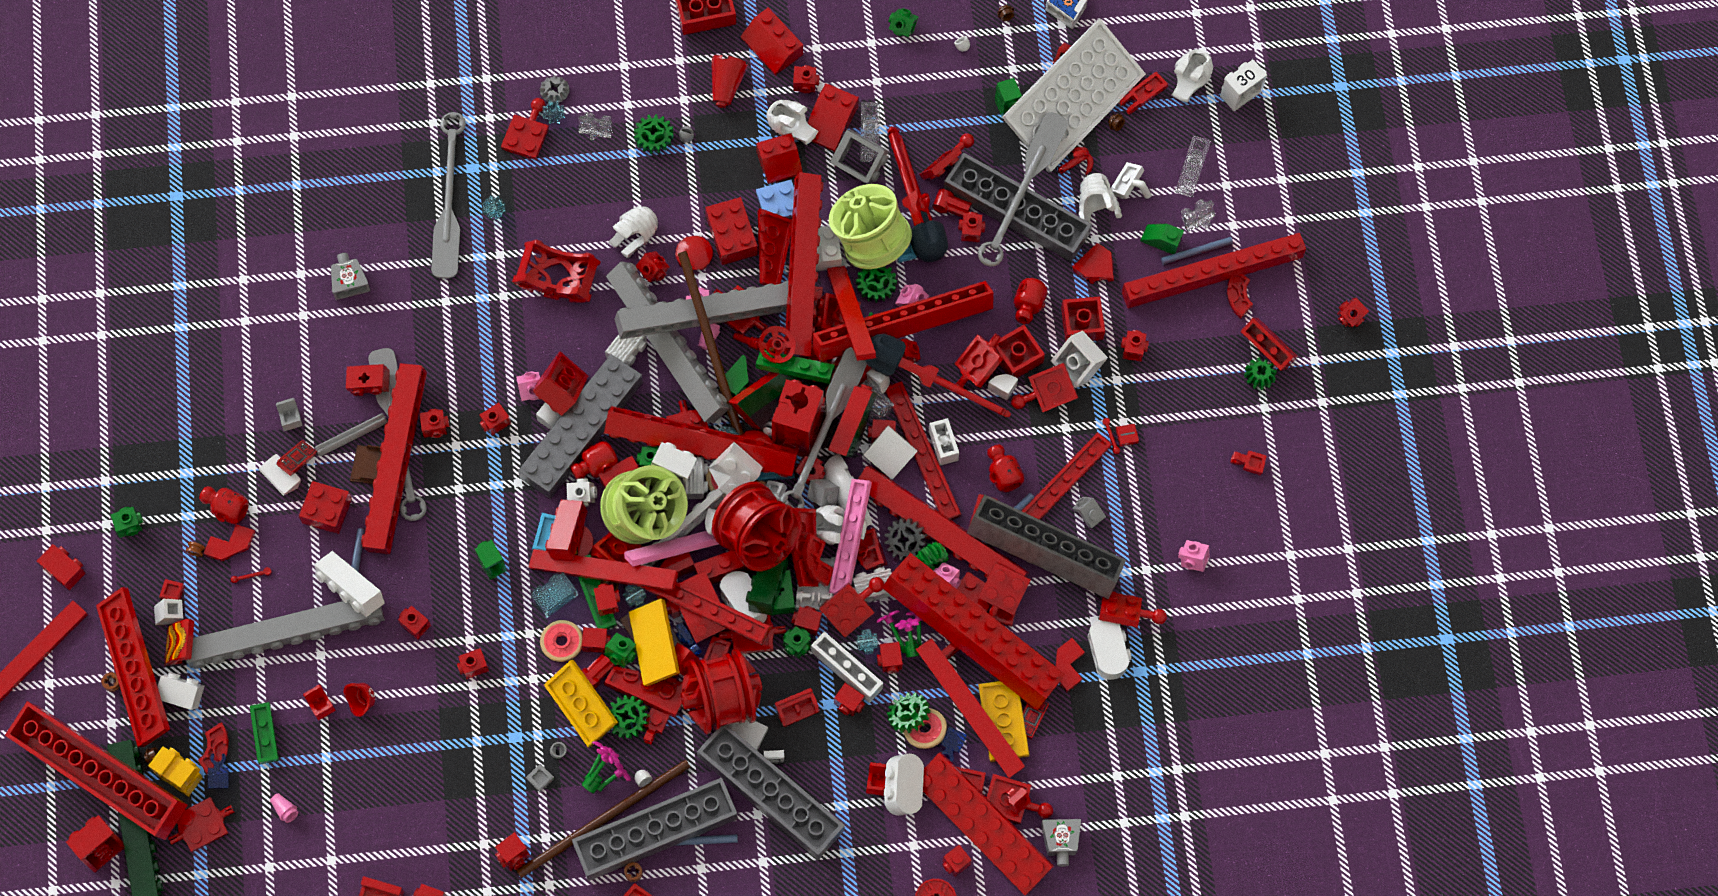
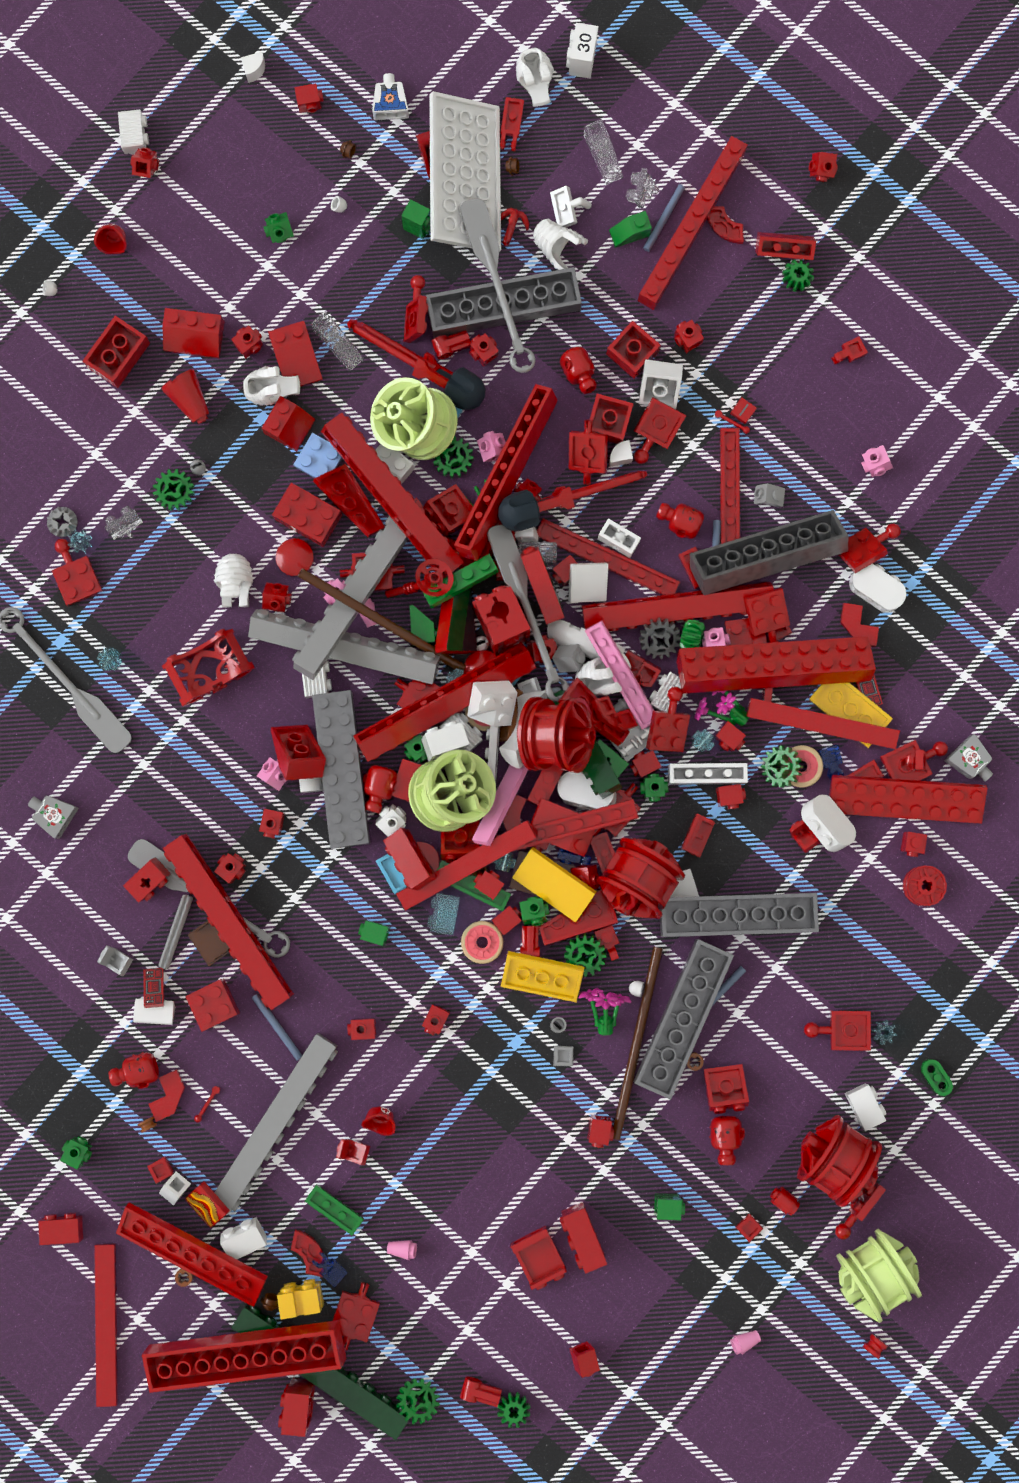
camera: 40 degrees left, 15 degrees up
(348, 584) = (290, 1048): white brick -> none
(775, 756) = (716, 886): white tile -> none
(843, 149) = (345, 352): light grey window -> none
(851, 313) = (466, 502): red tile -> none
(1095, 265) = (601, 296): red slope -> none

